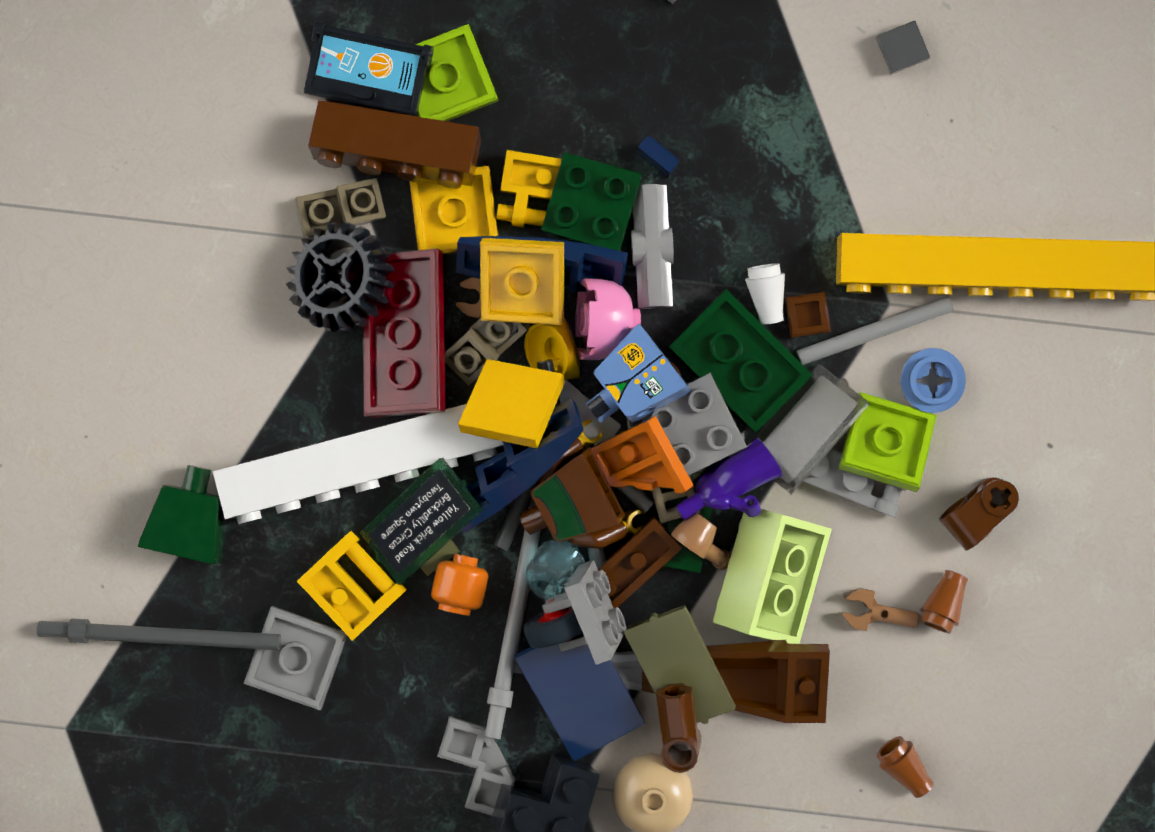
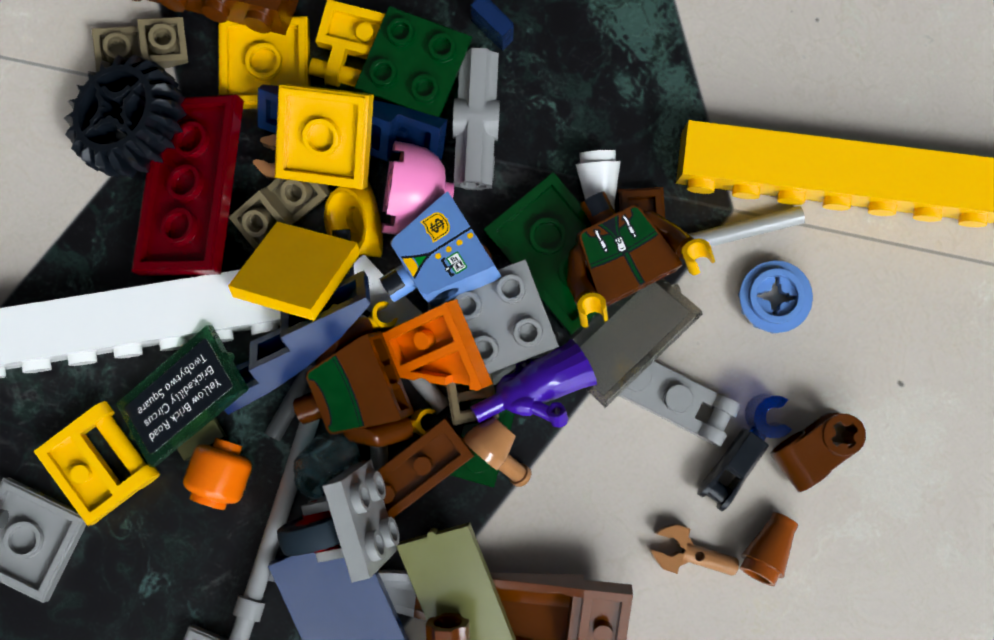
camera: 10 degrees right, 5 degrees down
(772, 576) = (574, 499): yellowish green slope -> none
(796, 361) = (625, 254): none -> torso
(889, 443) = (721, 362): lime tile -> none
(916, 520) = (744, 450): none -> black piece

